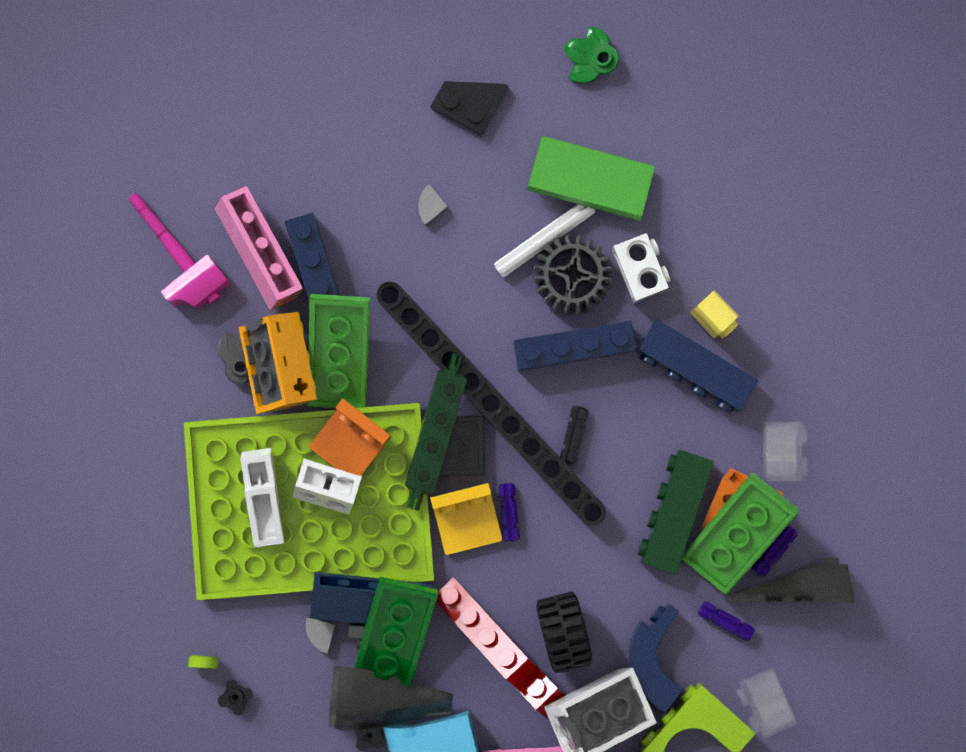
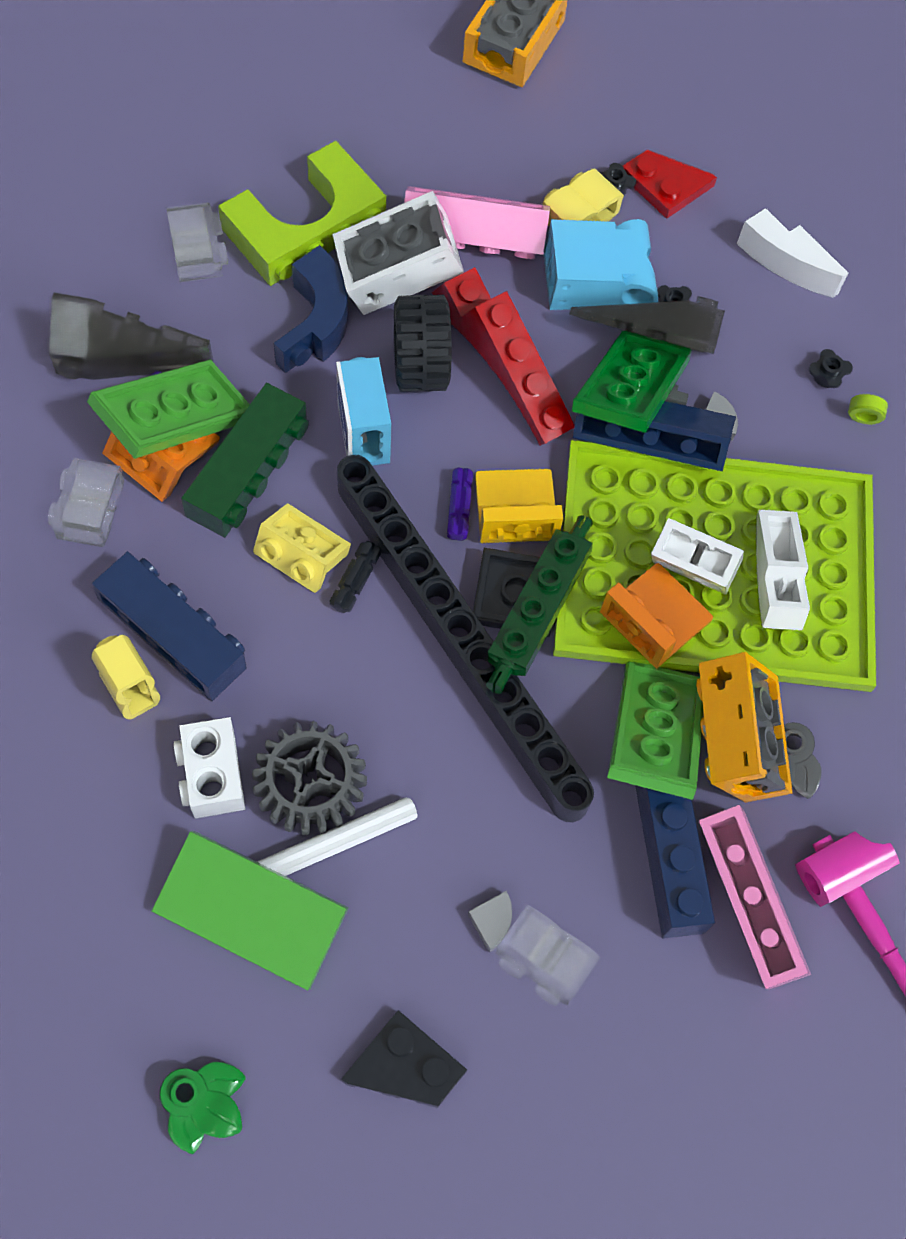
camera: 175 degrees left, 20 degrees down
(391, 185) = (546, 956): none -> clear brick
(574, 346) = (329, 680): dark blue brick -> none
(597, 564) = (364, 409): none -> medium azure piece
(619, 449) = (299, 546): none -> light yellow bracket
(726, 621) = (218, 335): dark purple axle -> none

